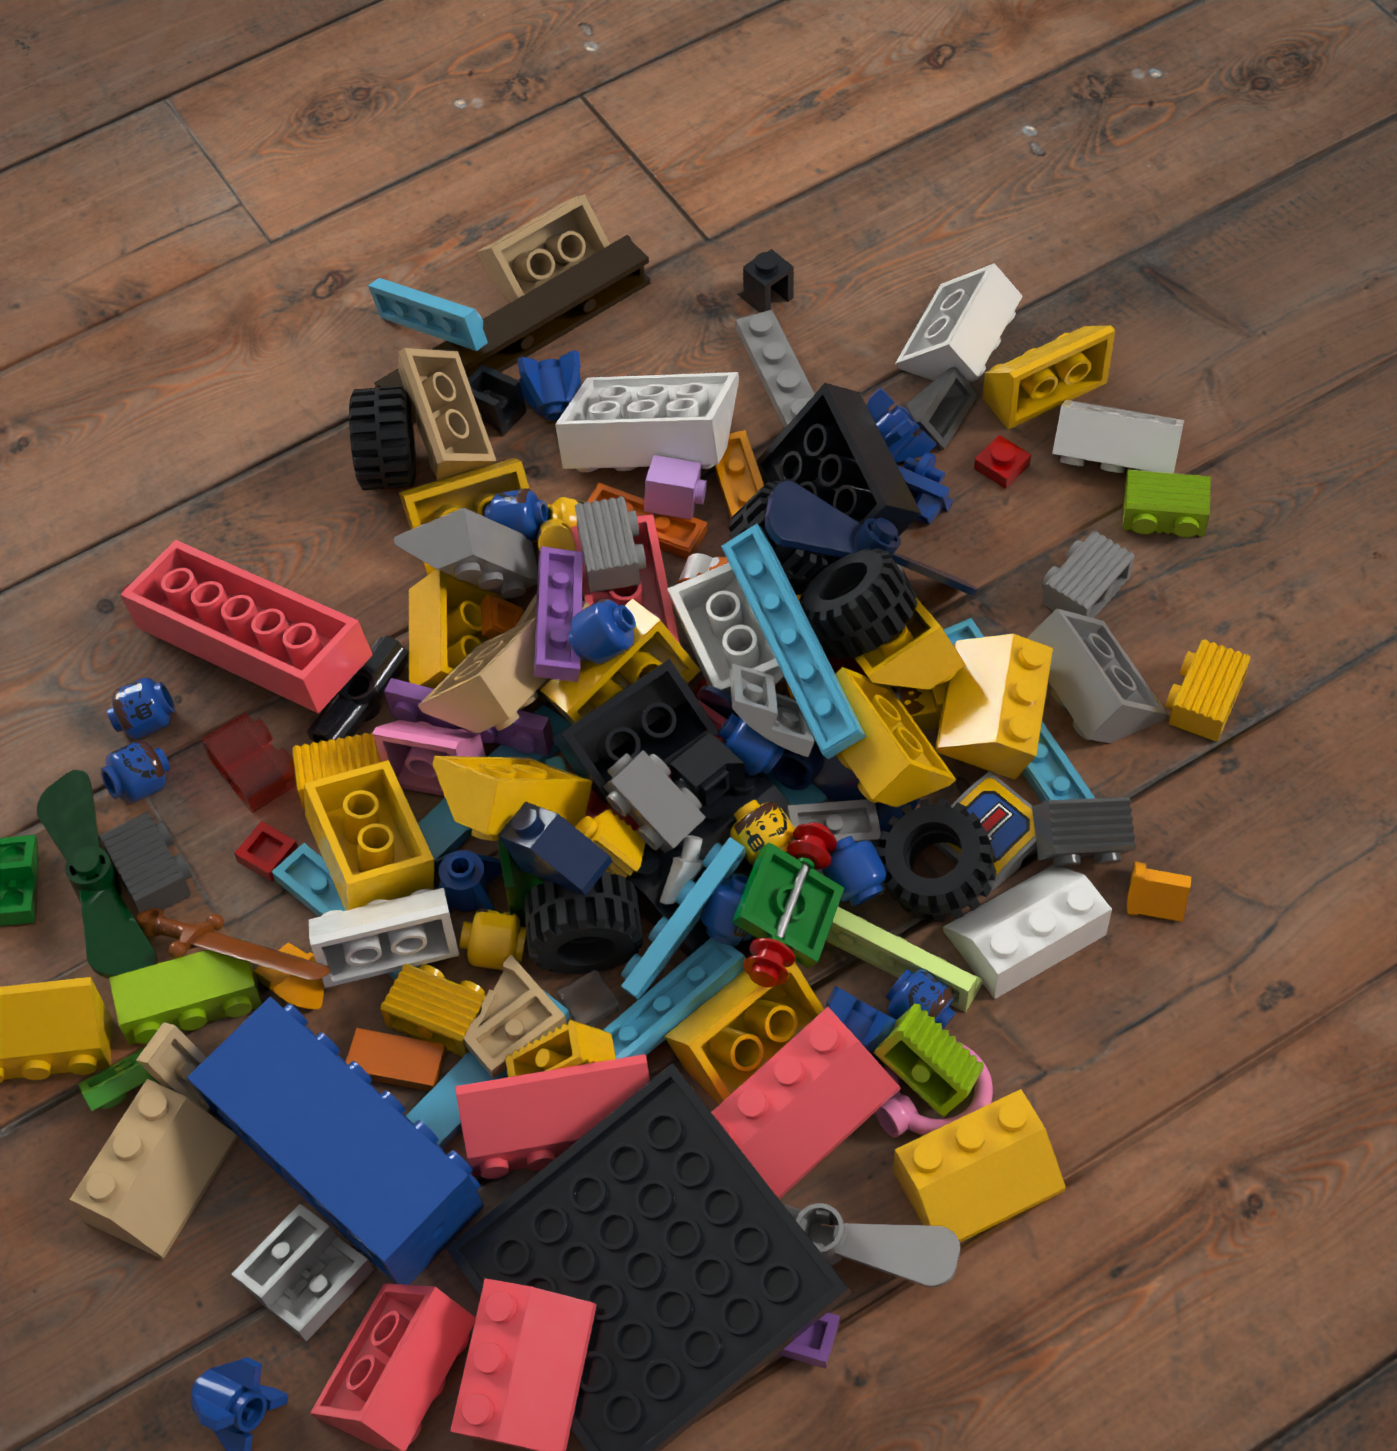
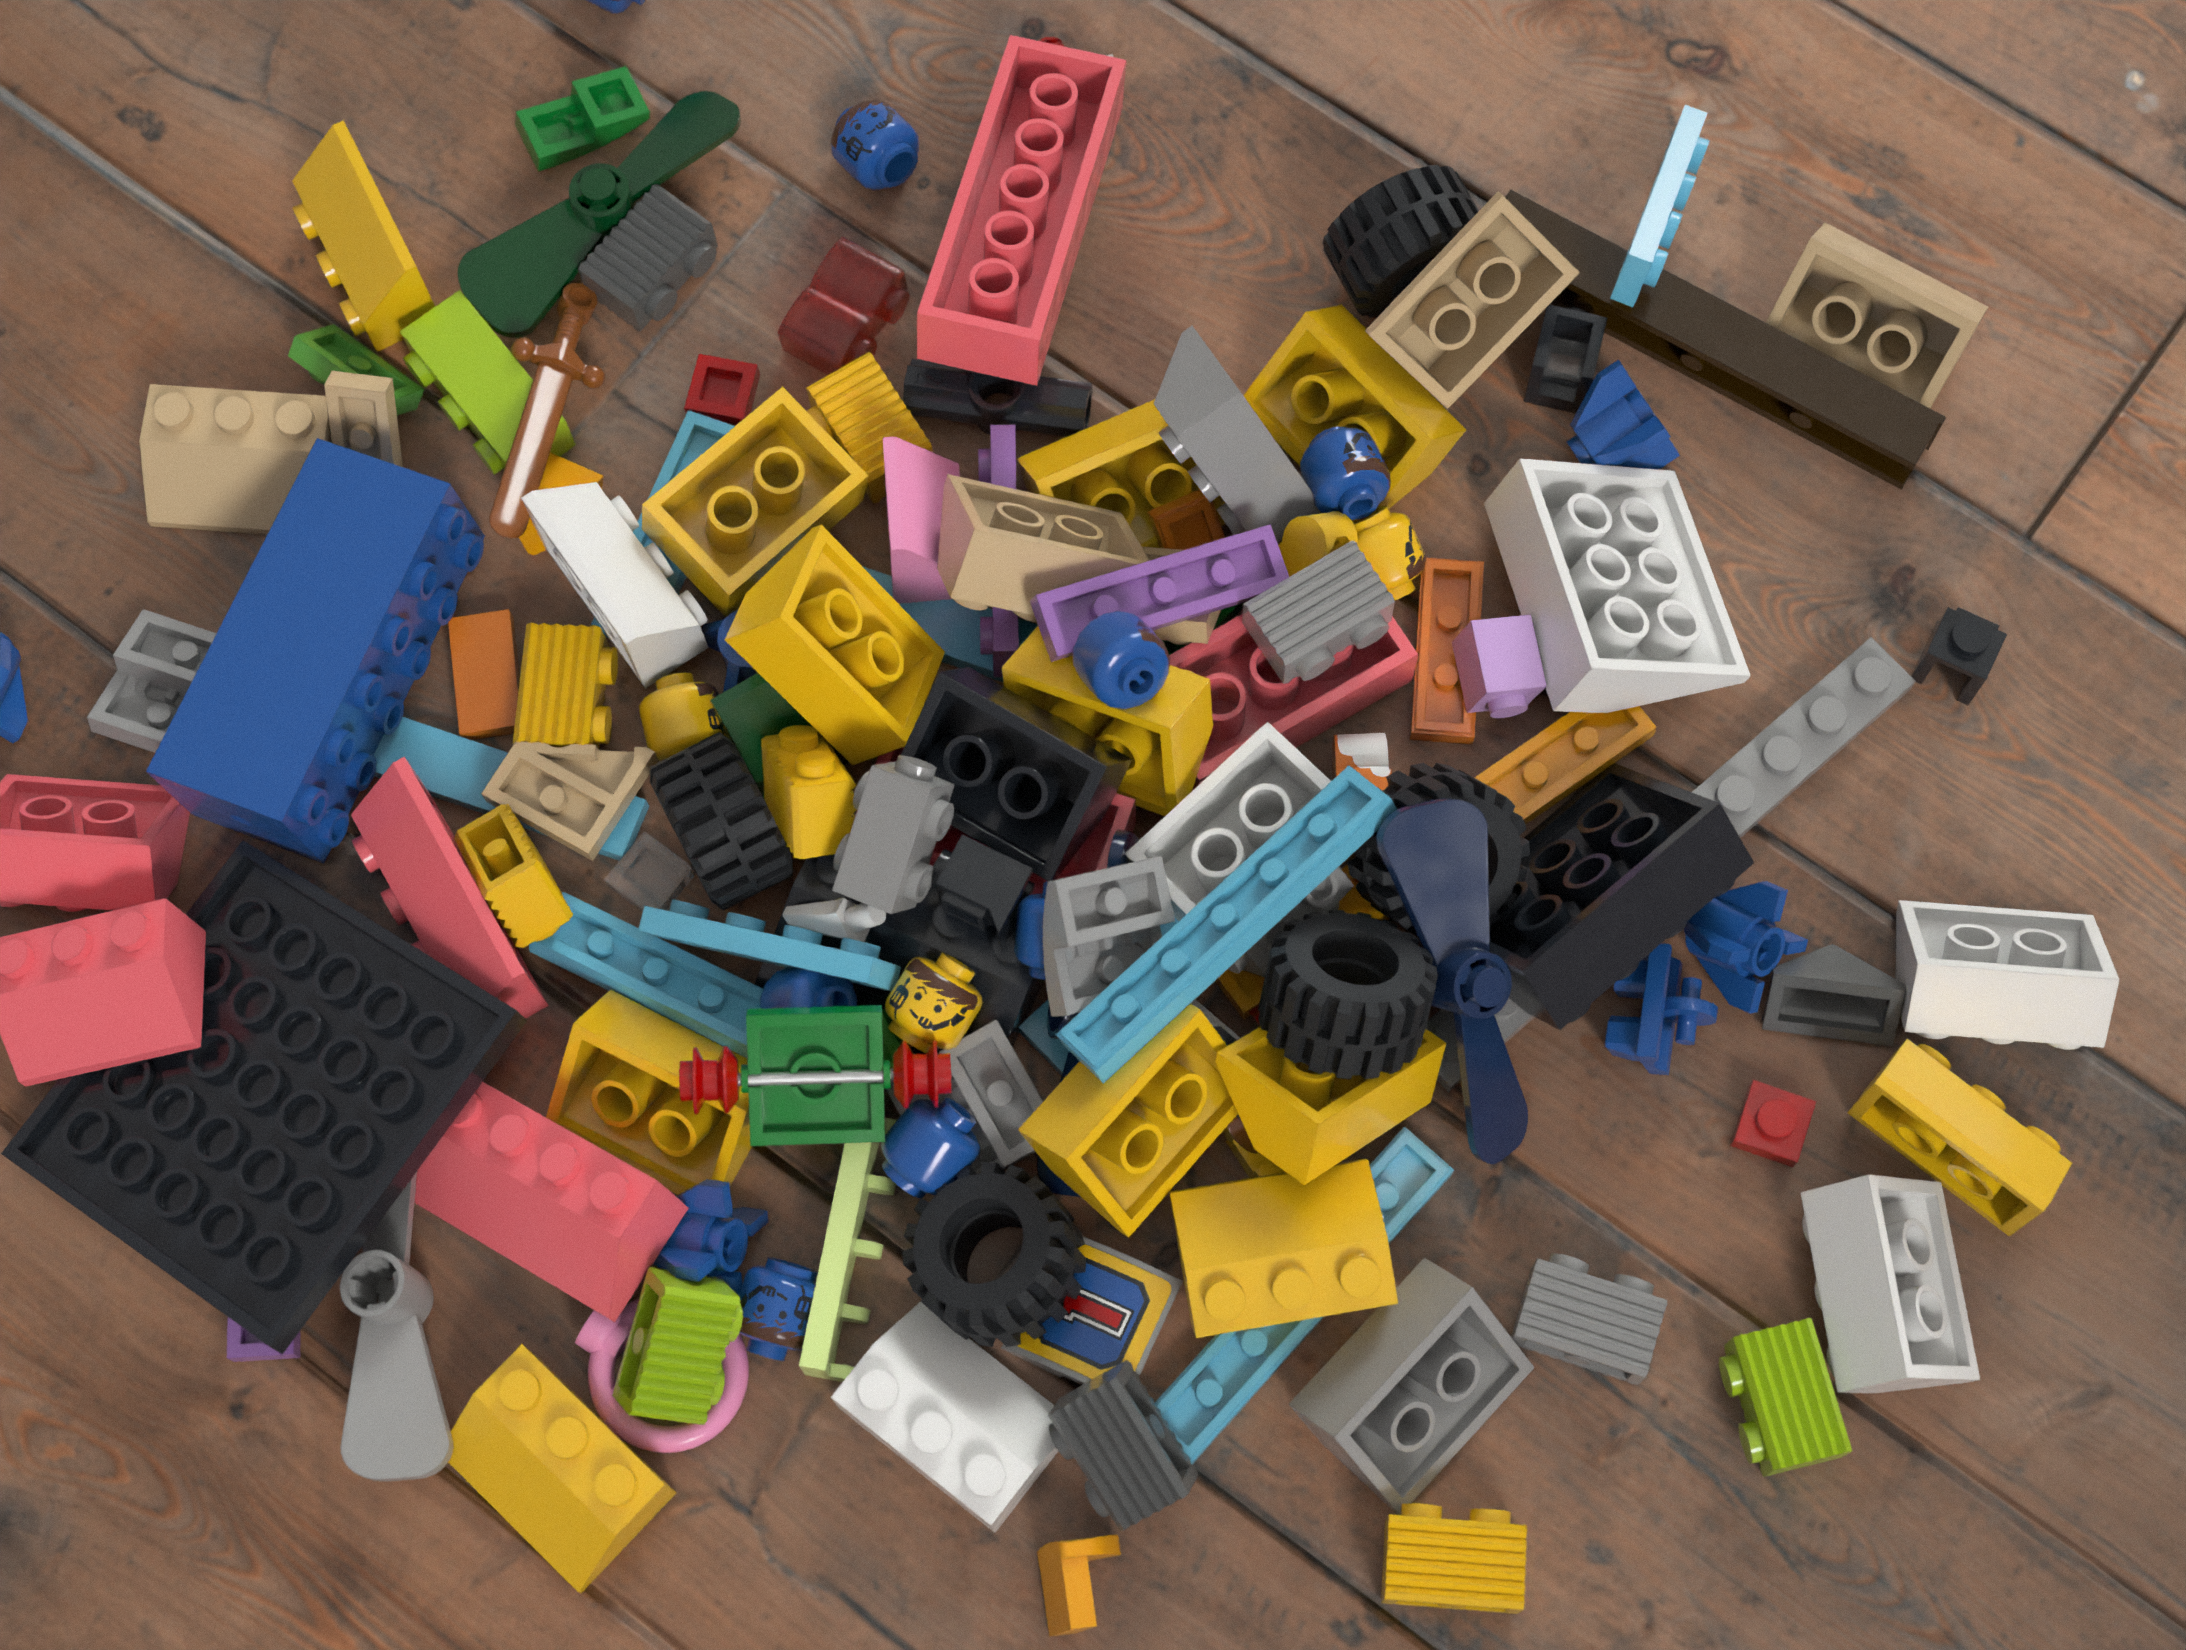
camera: 70 degrees right, 15 degrees up
(135, 771) = (777, 182): blue head -> none
(553, 849) = (751, 735): dark blue slope -> none

